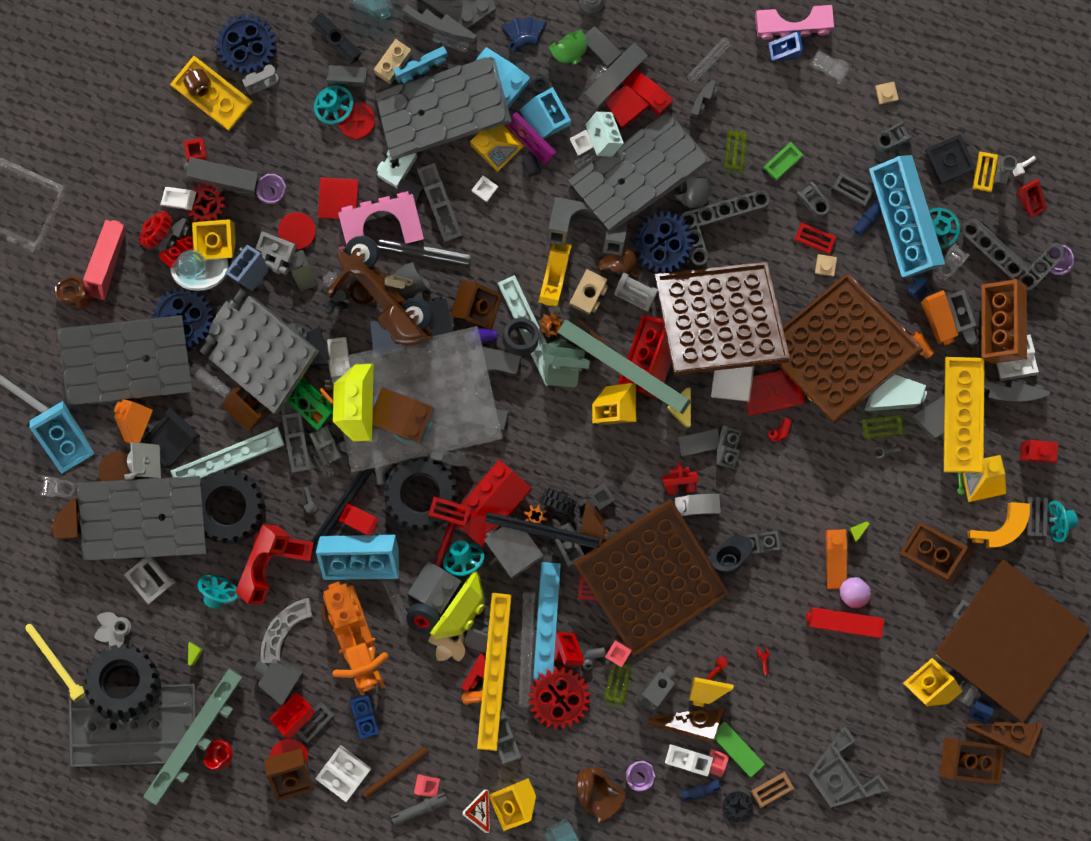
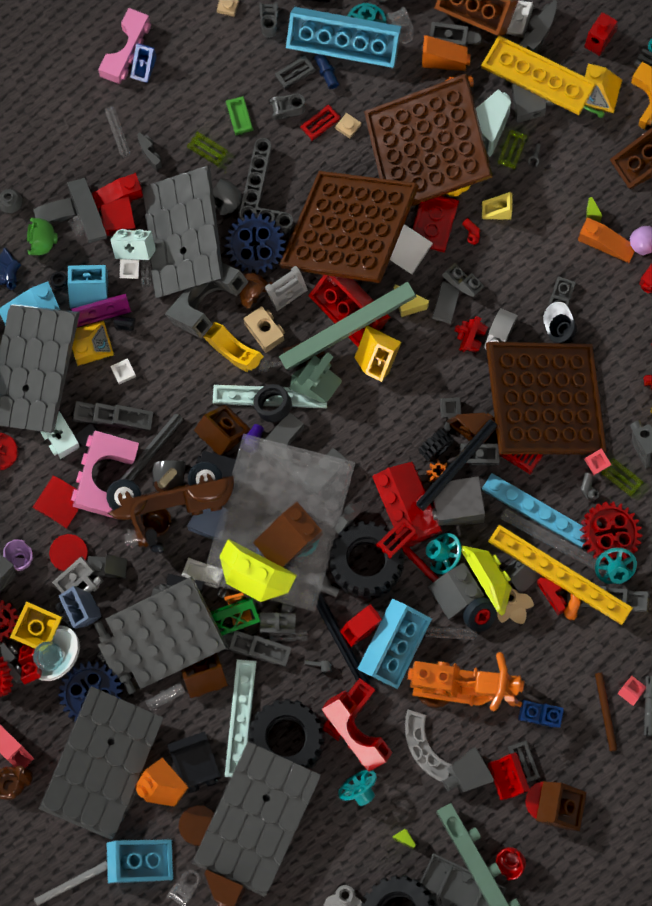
camera: 60 degrees left, 10 degrees down
(143, 461) = (204, 791): light grey hat -> none
(145, 583) = (314, 852): light grey plate -> none
(343, 773) = (584, 759): white slope -> none
(525, 720) = (616, 568): none -> teal wheel
(550, 324) = (275, 374): orange gear -> none
(567, 649) = (572, 503): red slope -> none
(815, 442) = (498, 207): none -> light yellow slope
(832, 67) = (182, 35): clear piece -> none
(919, 289) = (411, 61): dark blue tile -> none

